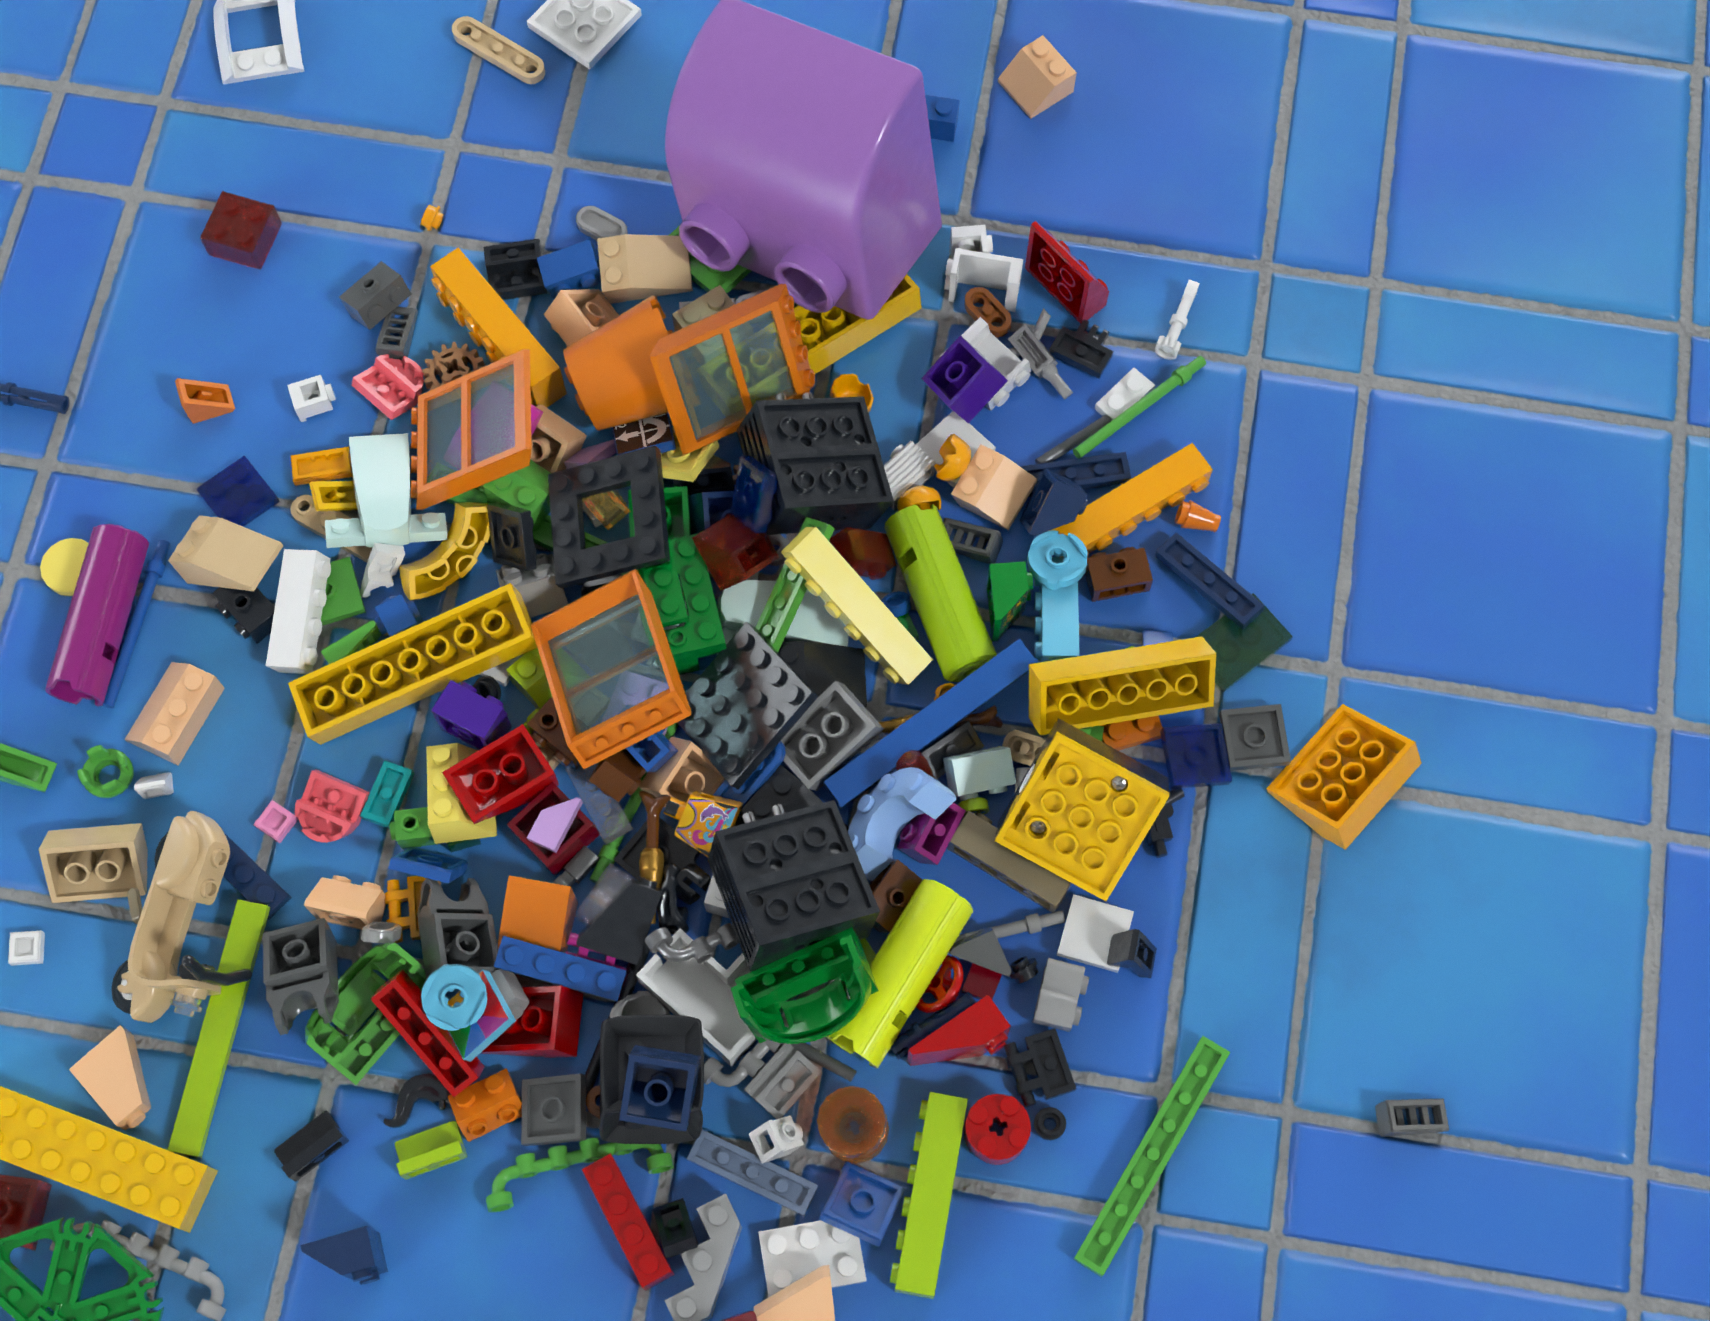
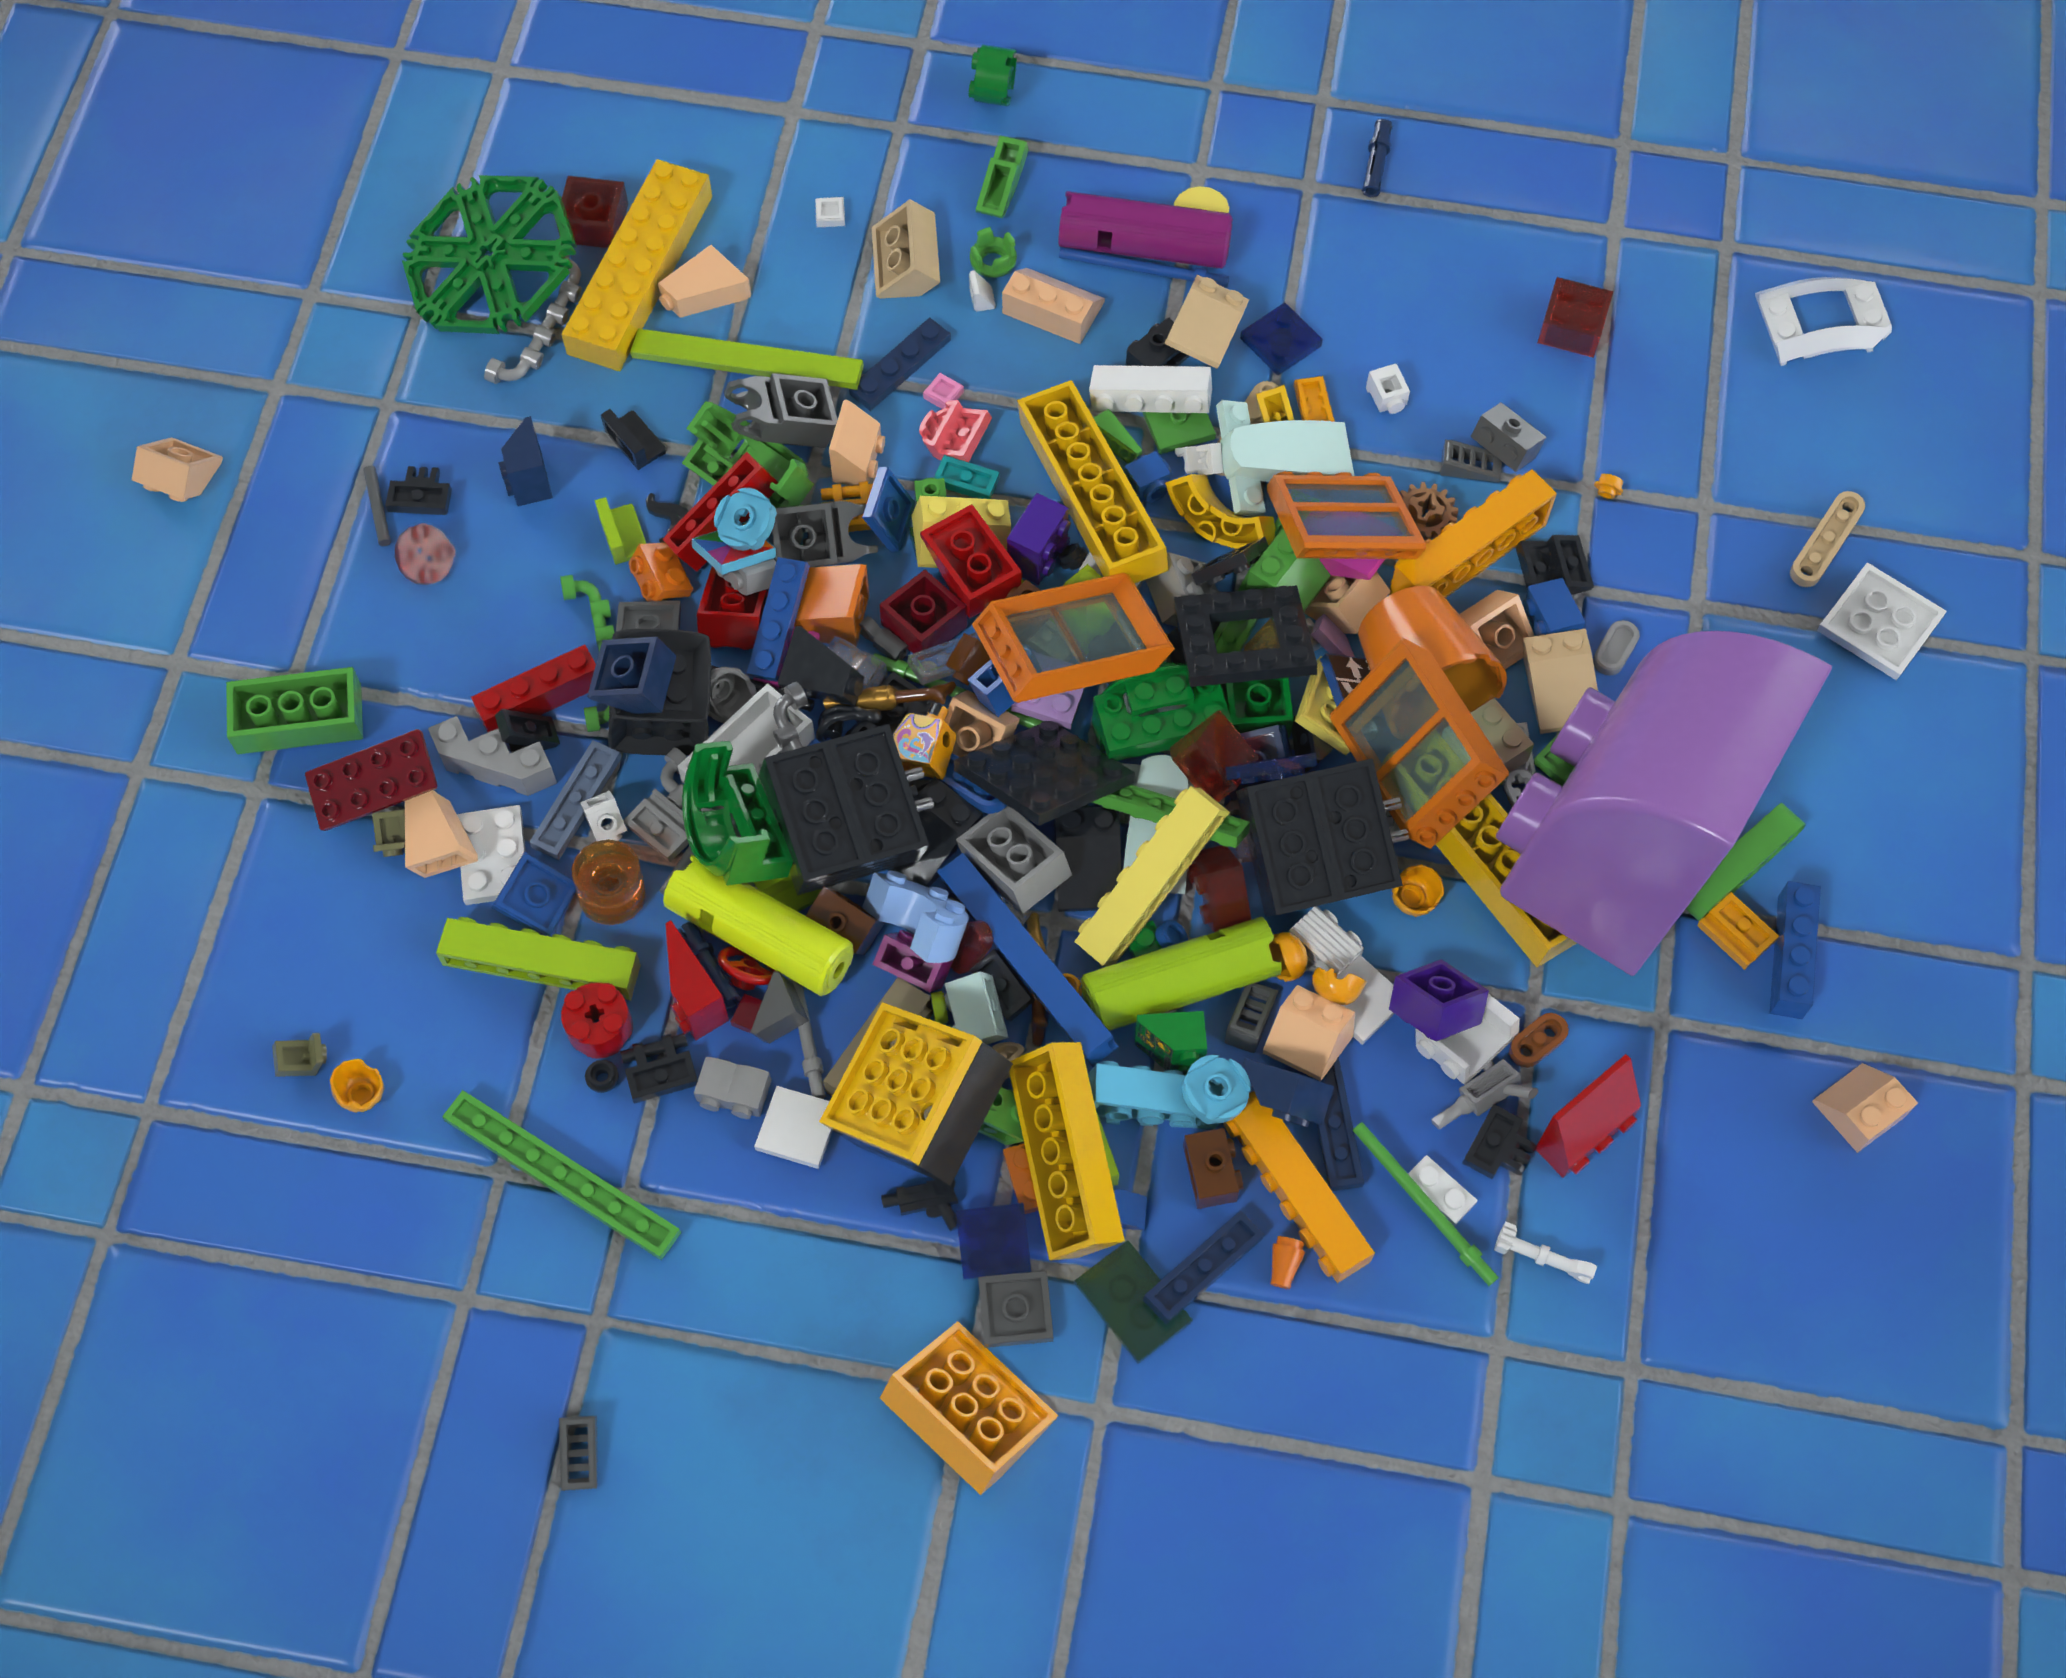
camera: 90 degrees right, 5 degrees down
(187, 872) = (870, 309): tan piece -> none
(204, 399) = (1381, 298): orange slope -> none
(381, 932) = (819, 468): light grey tile -> none
(391, 384) = (1408, 458): coral slope -> none
(554, 824) = (919, 605): lavender tile -> none
(970, 238) = (1614, 1017): white bracket -> none
(984, 271) = (1570, 1058): white panel -> none
(1023, 969) = (761, 1053): black plate -> none
(1073, 441) = (1378, 1129): dark grey bar -> none
(1132, 951) = (768, 1162): black slope -> none

